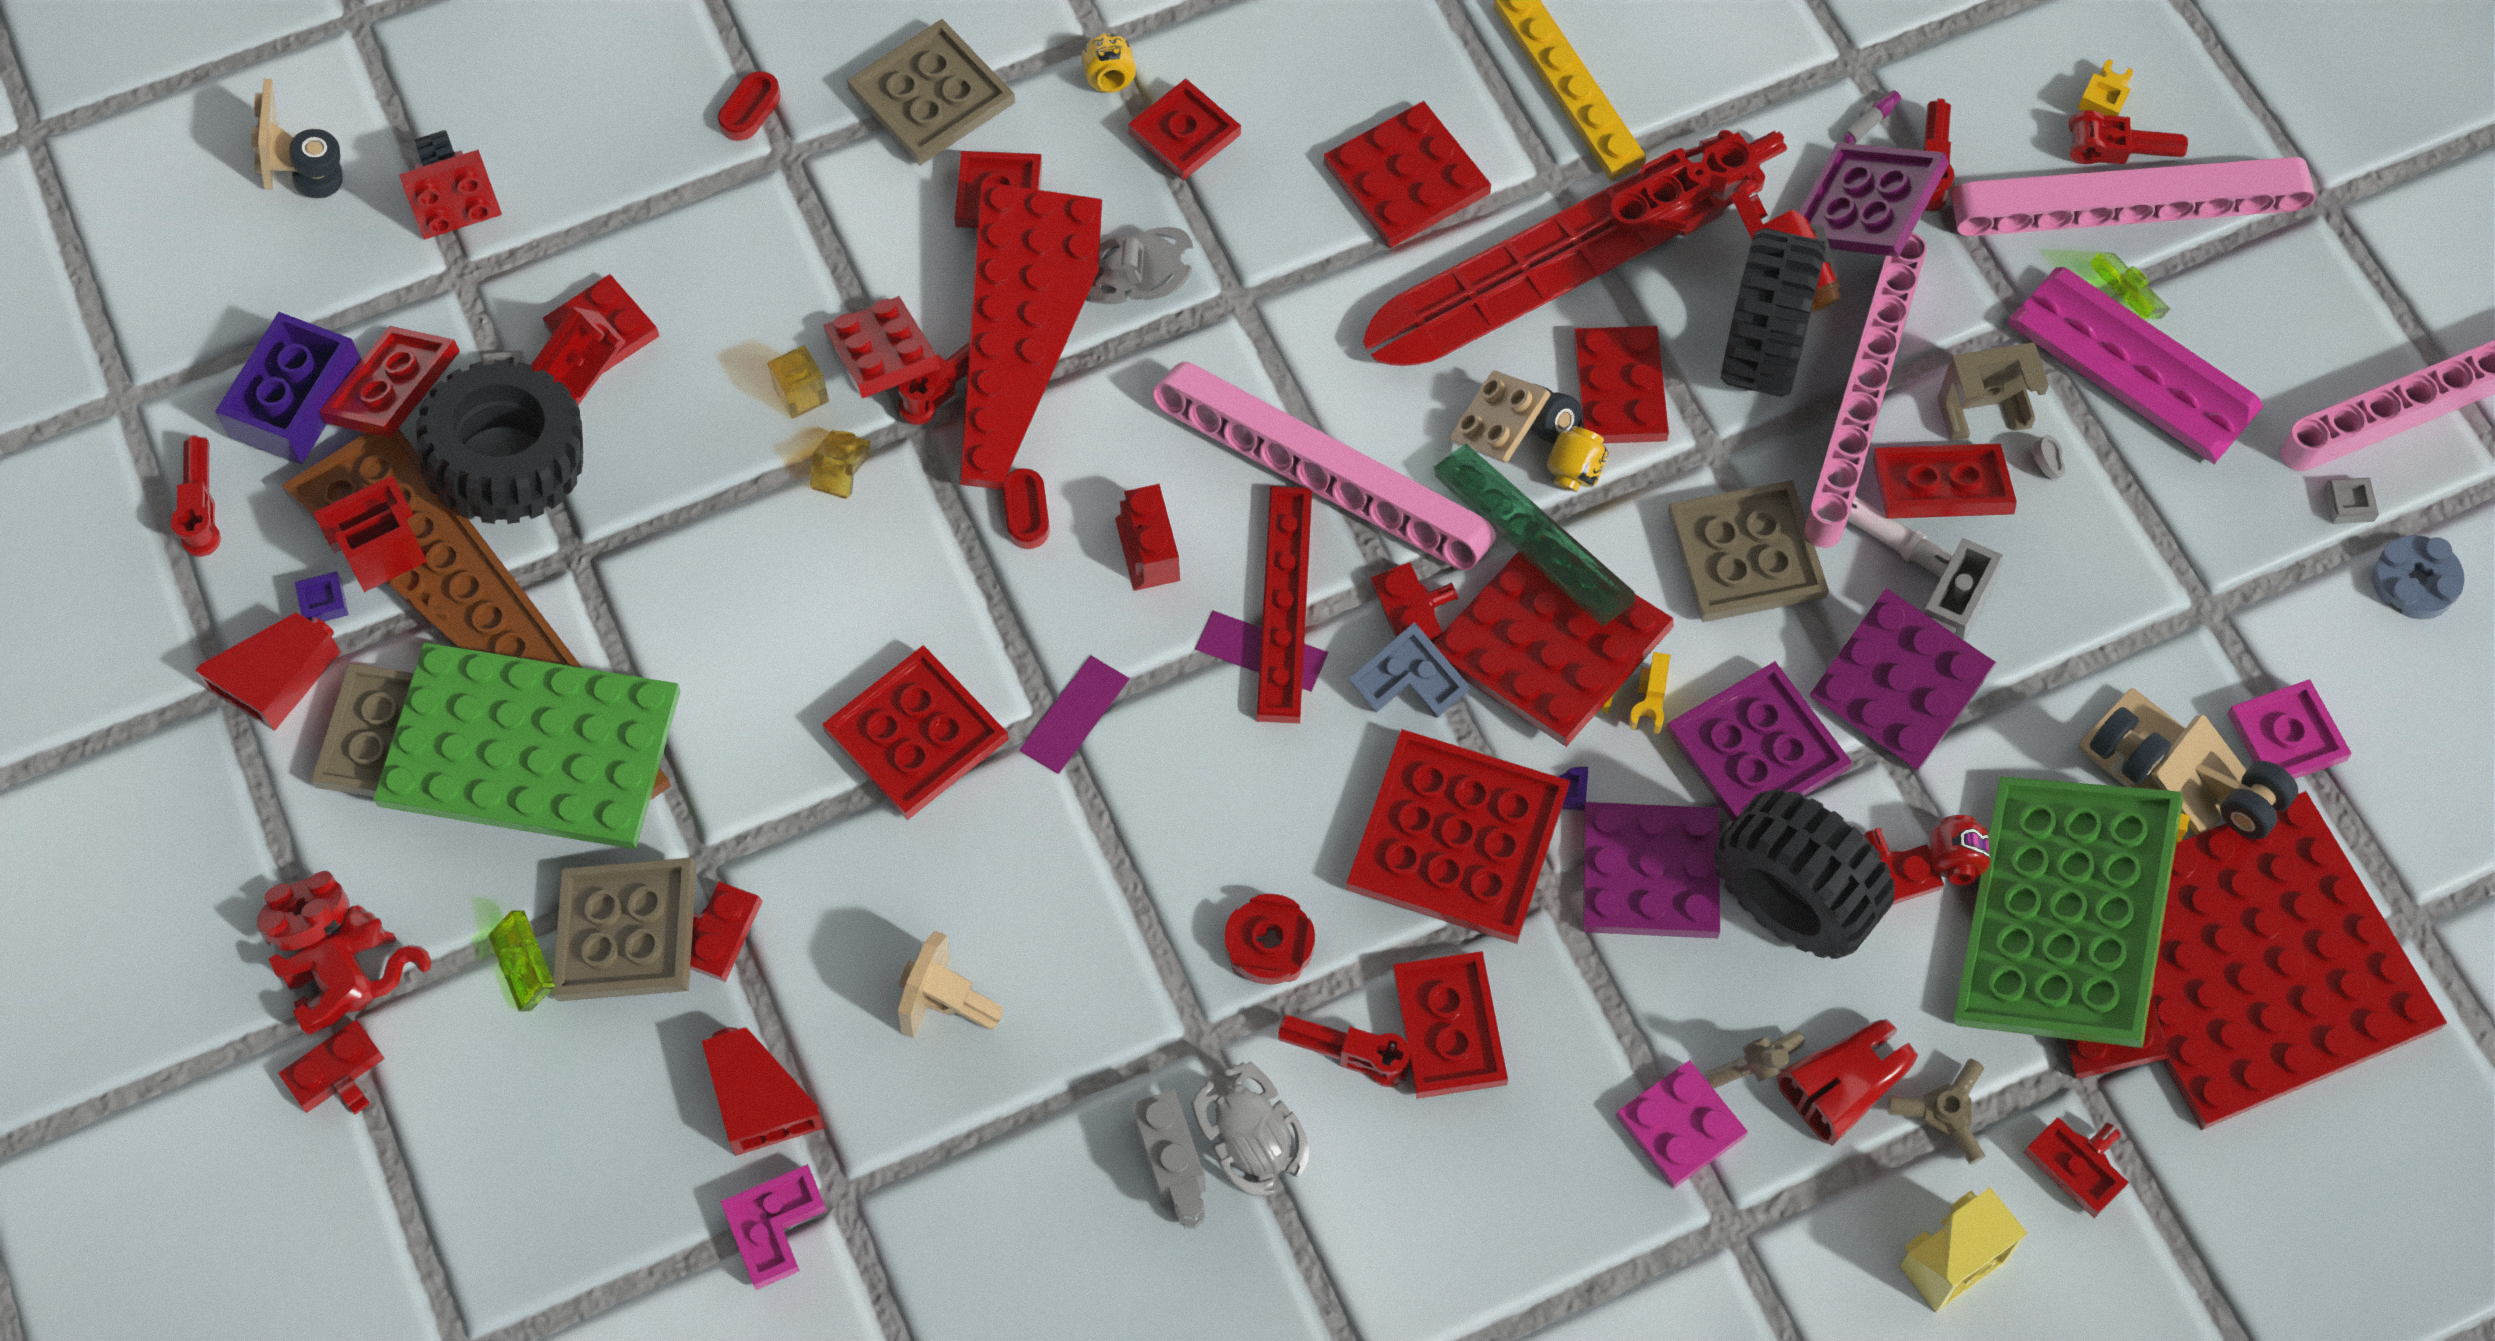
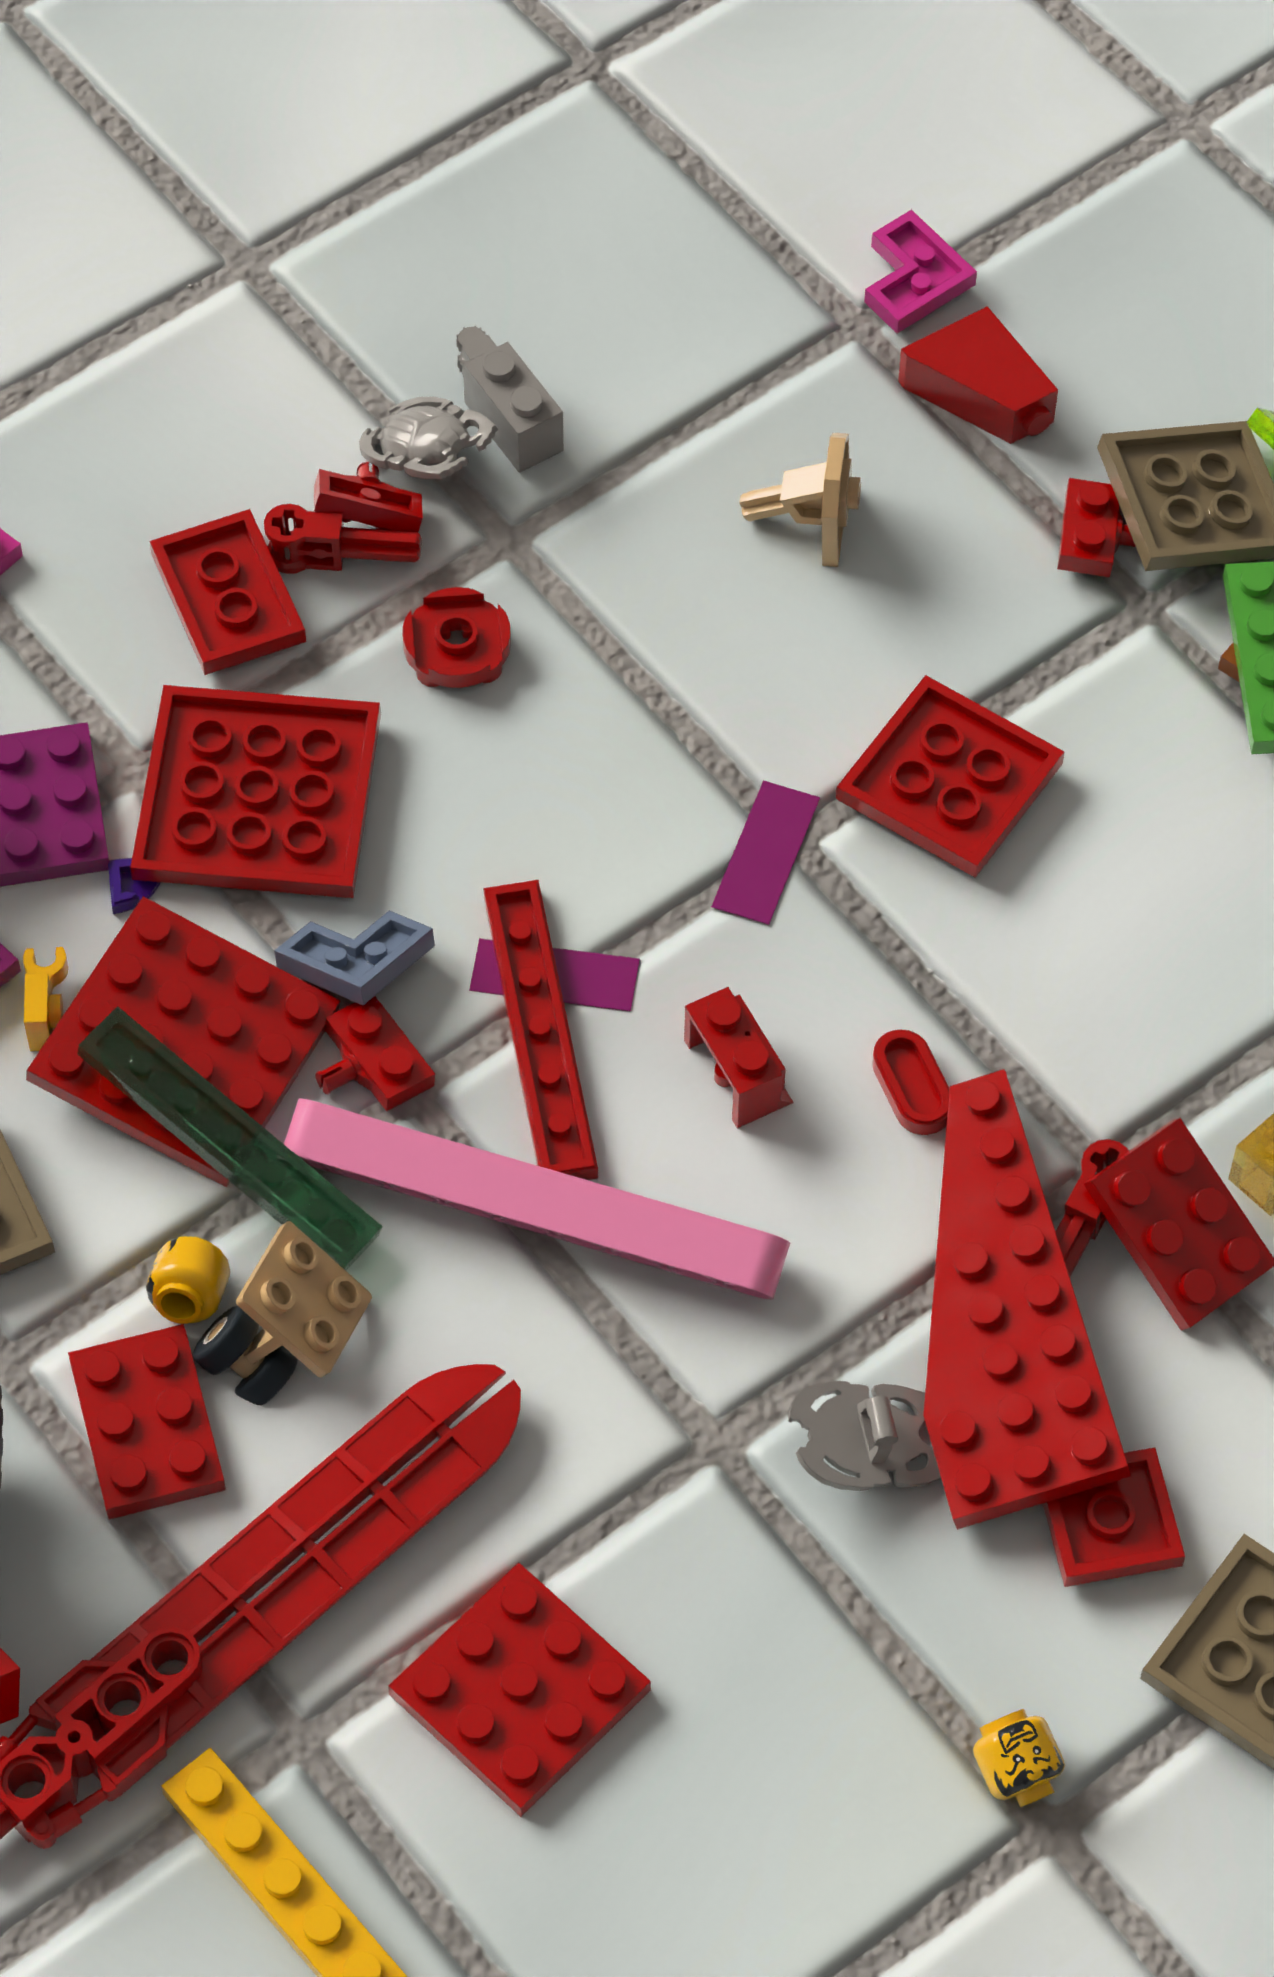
camera: 165 degrees right, 5 degrees down
(837, 462) = (1177, 1082): clear yellow bracket -> none
(1184, 129) = (870, 1677): red plate -> none
(1315, 1078) = (368, 500): none -> red plate

